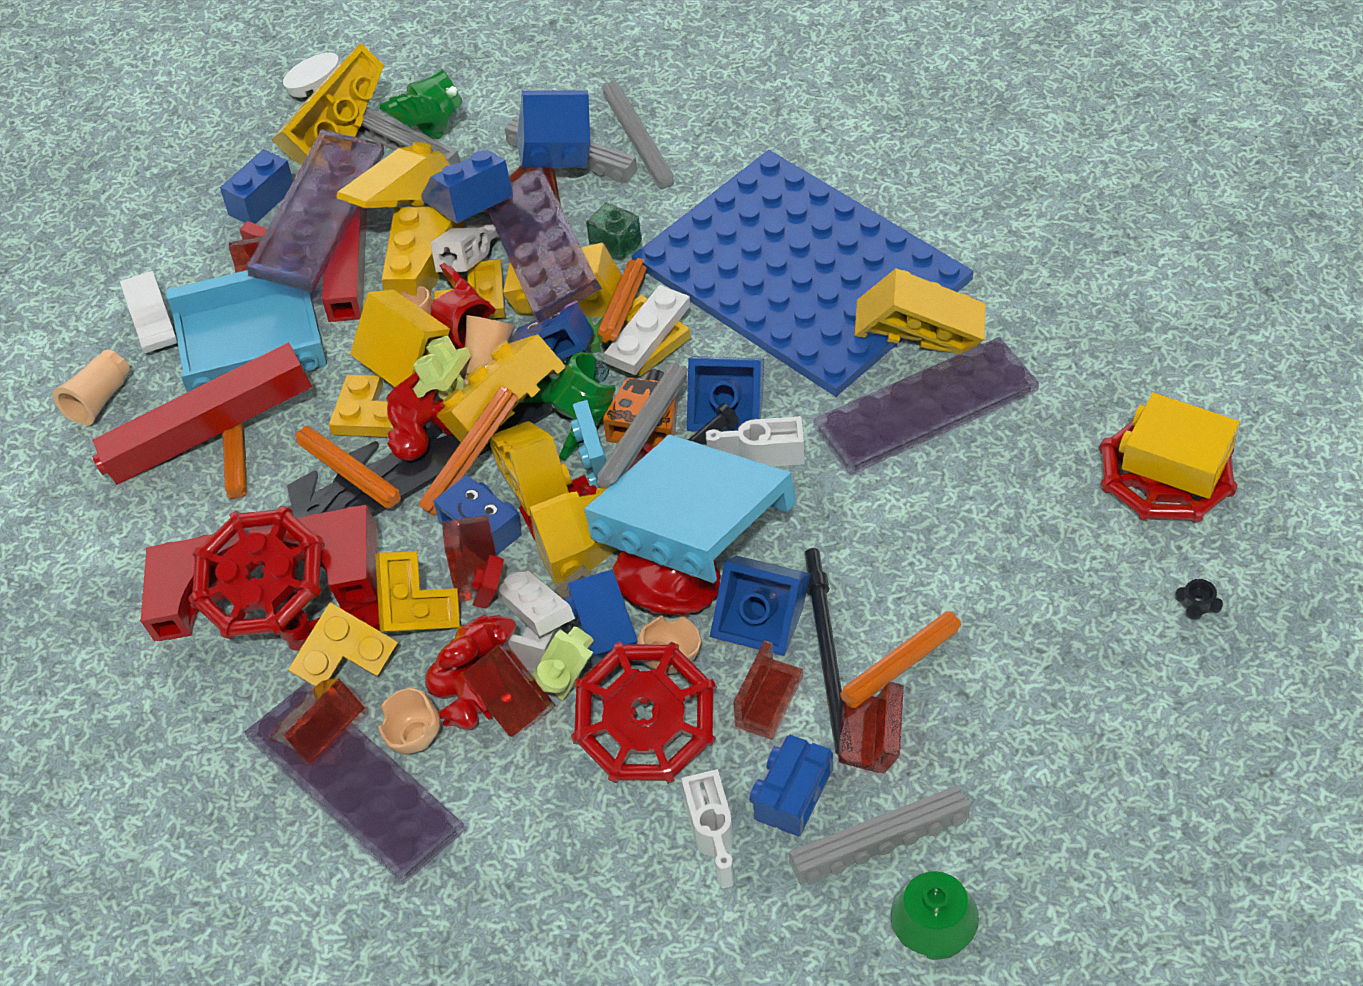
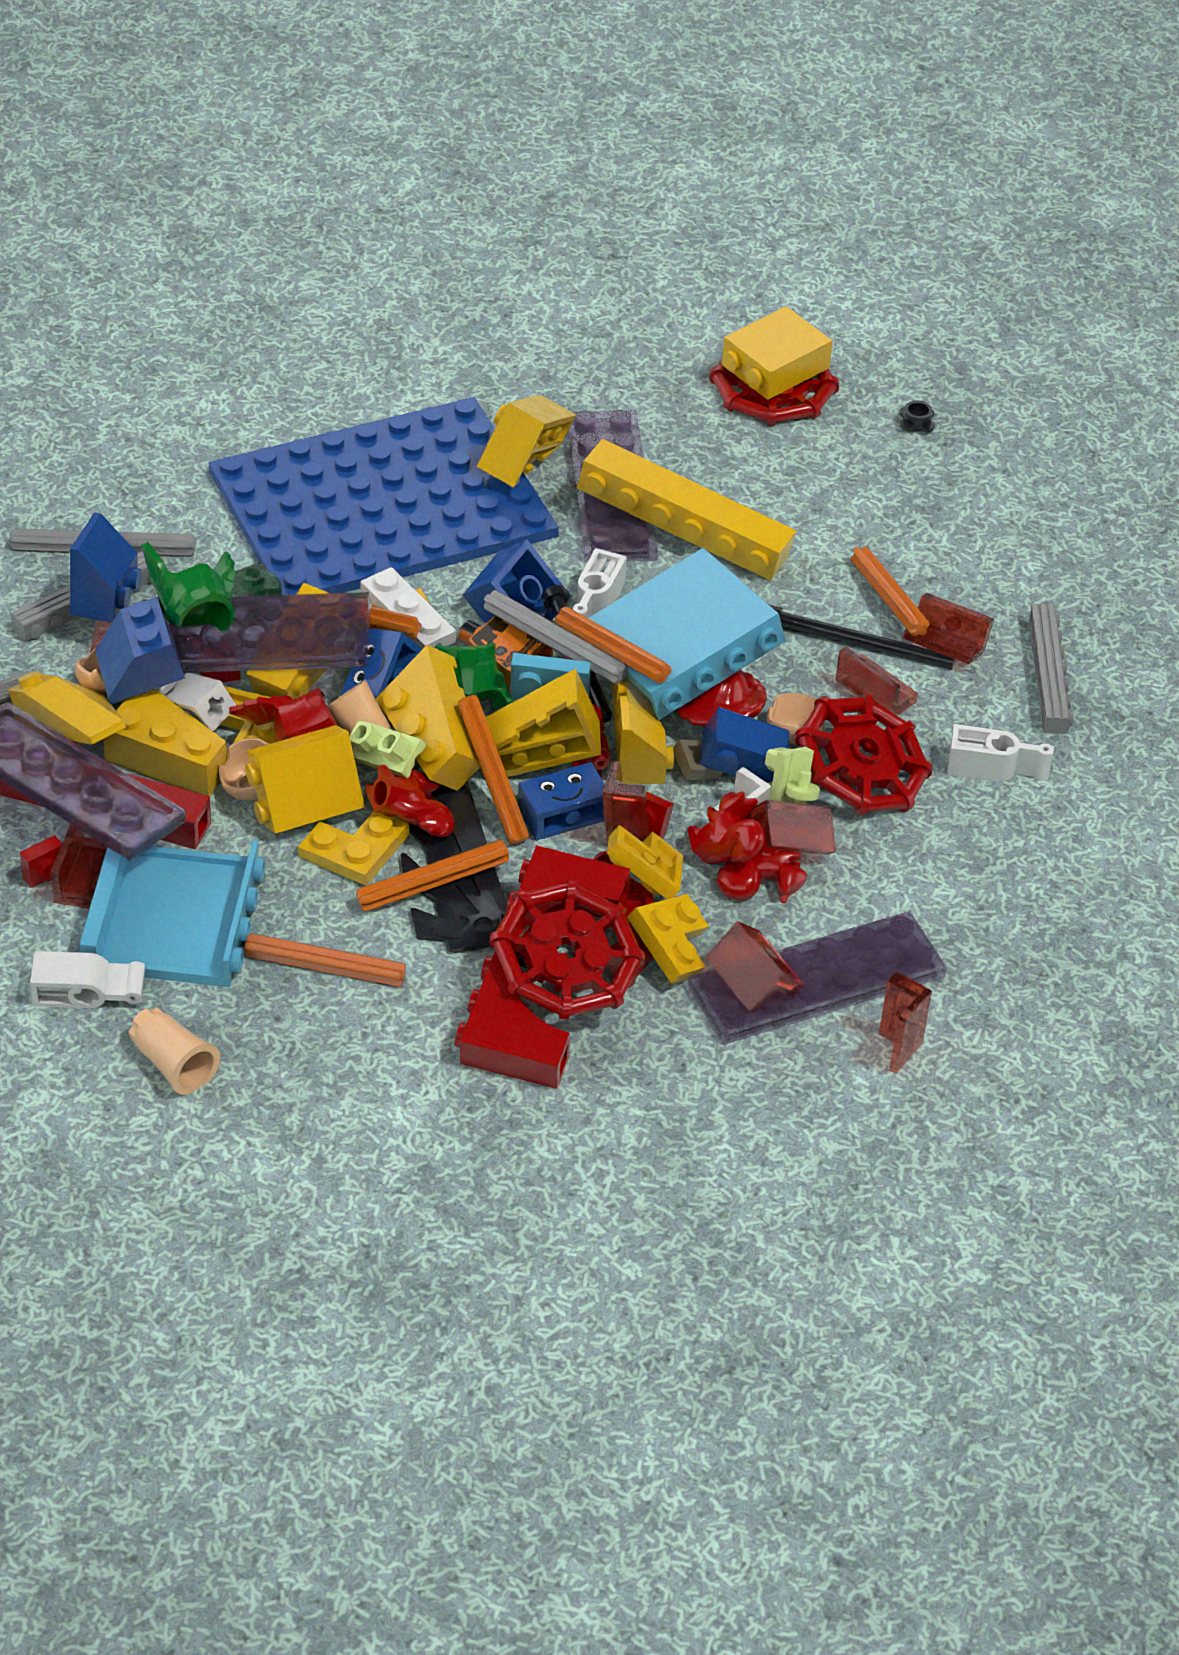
camera: 75 degrees left, 5 degrees down
(200, 414) = (294, 960): red brick -> none
(289, 863) = (904, 1017): none -> clear red panel
(409, 721) = (785, 910): light nougat hair -> none
(523, 177) = (196, 594): none -> green helmet
(534, 602) = (710, 780): white plate -> none
(631, 461) = (613, 645): none -> orange axle
(758, 603) = (796, 661): blue slope -> none
(792, 784) = (979, 695): blue brick -> none
(900, 463) = (686, 509): none -> yellow brick
(935, 915) = (1141, 659): green cone -> none

